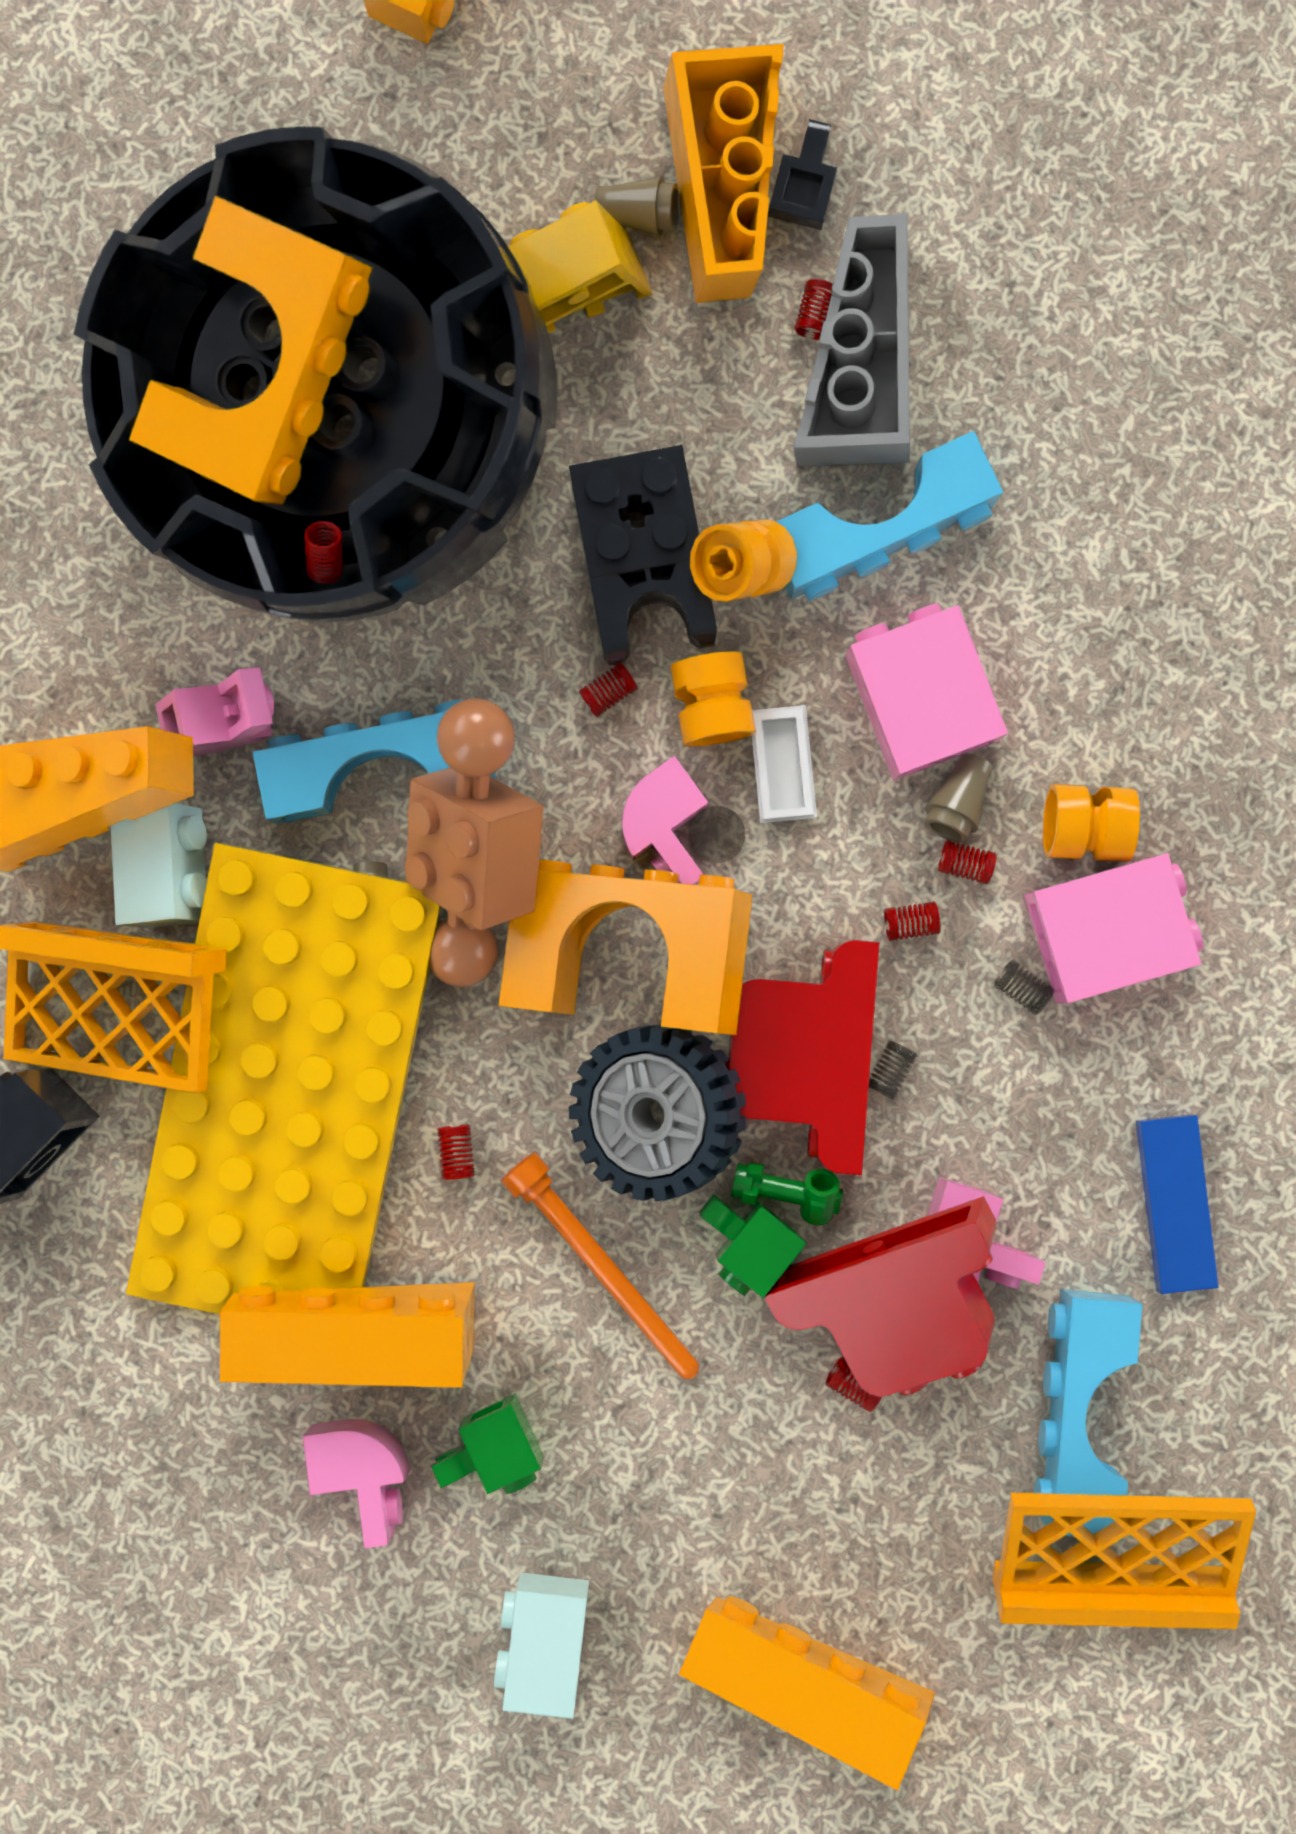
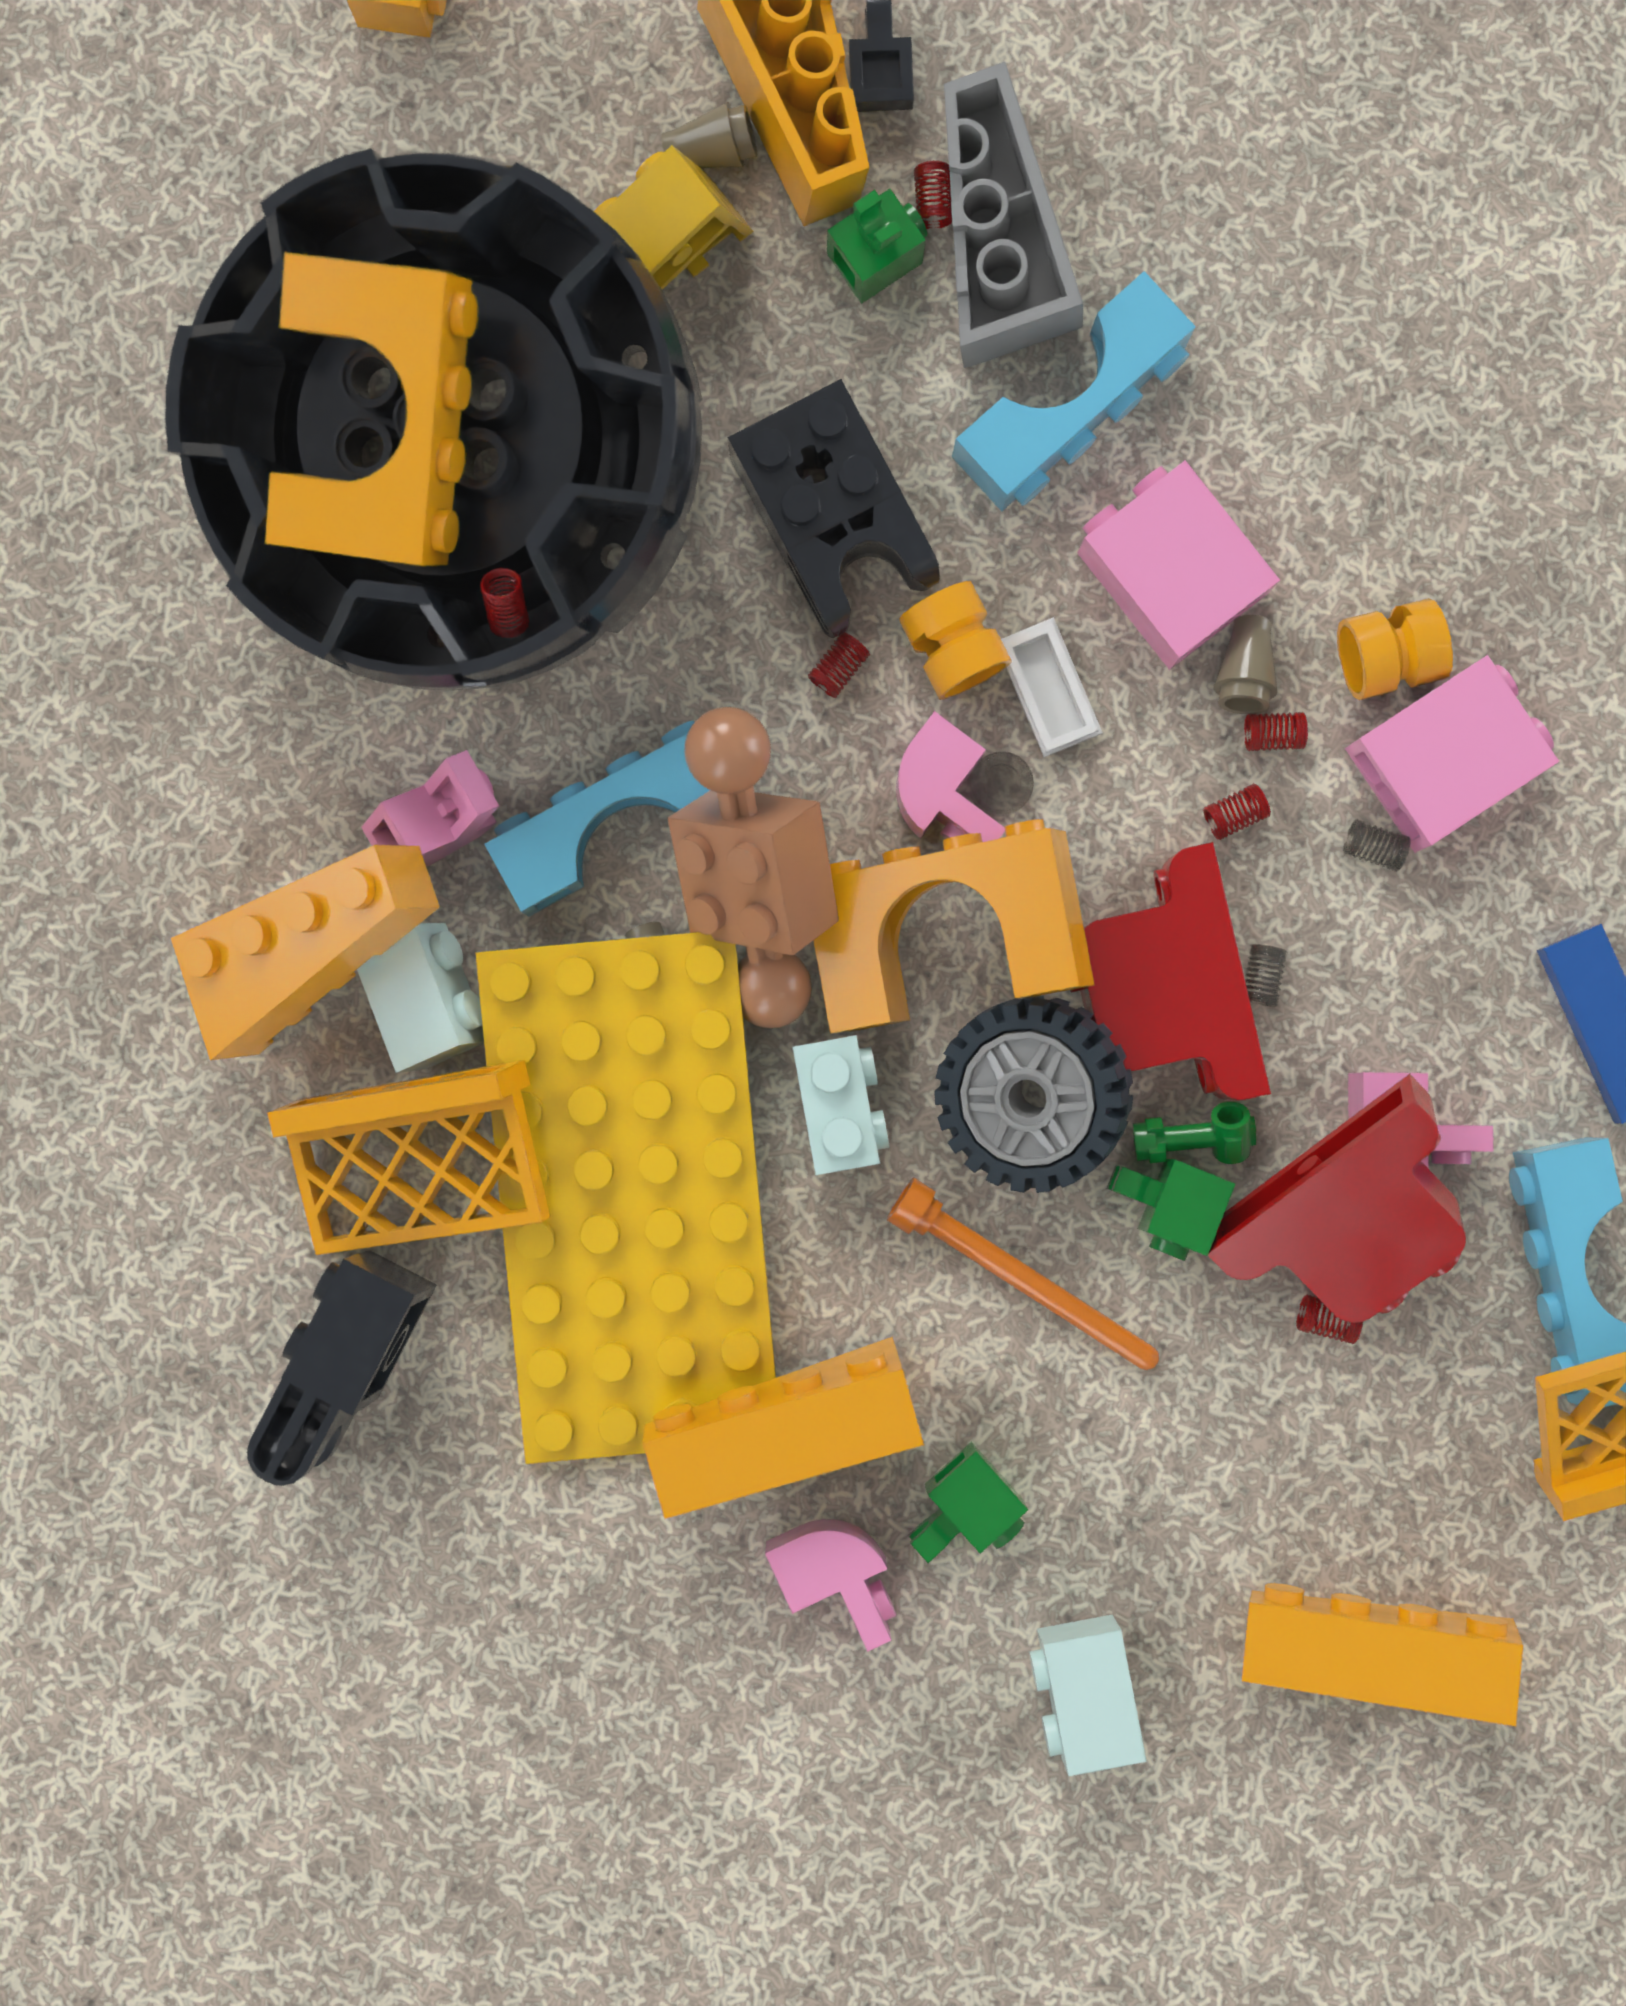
camera: 20 degrees left, 0 degrees up
(449, 1172) = (829, 1229): red piece -> none
(486, 1069) = (837, 1105): none -> light aqua brick
(743, 559) = (944, 480): light orange wheel -> none
(753, 336) = (877, 243): none -> green brick

